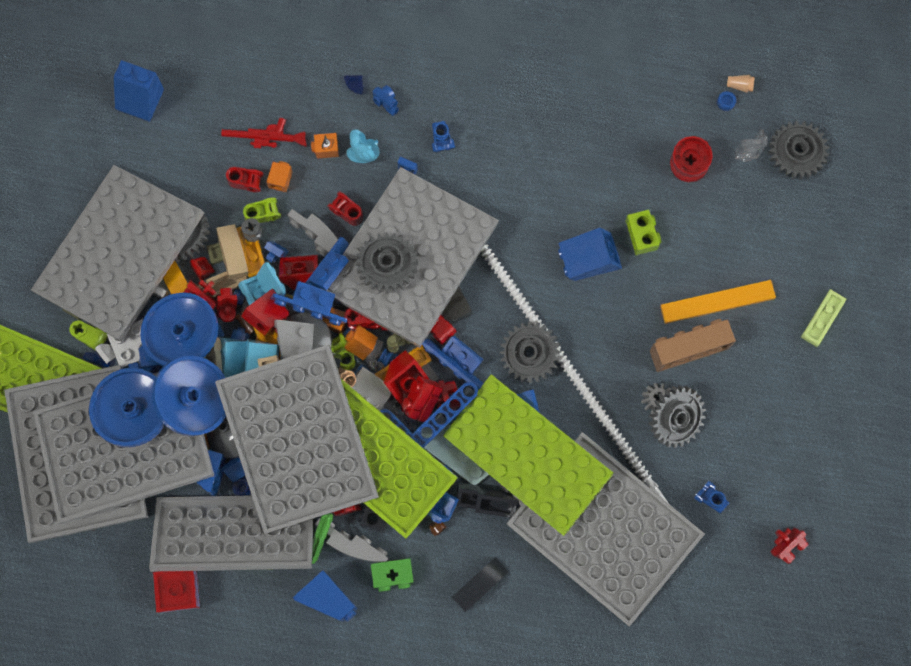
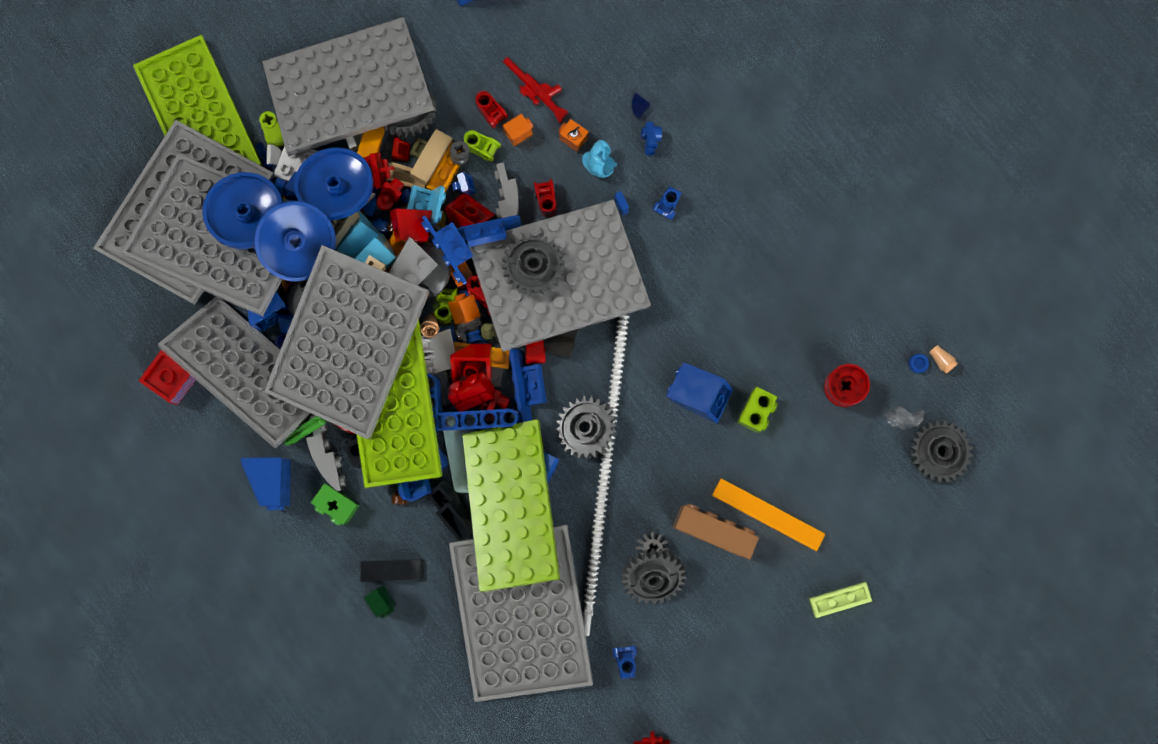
camera: 40 degrees right, 5 degrees up
(494, 614) = (380, 602): none -> dark green brick

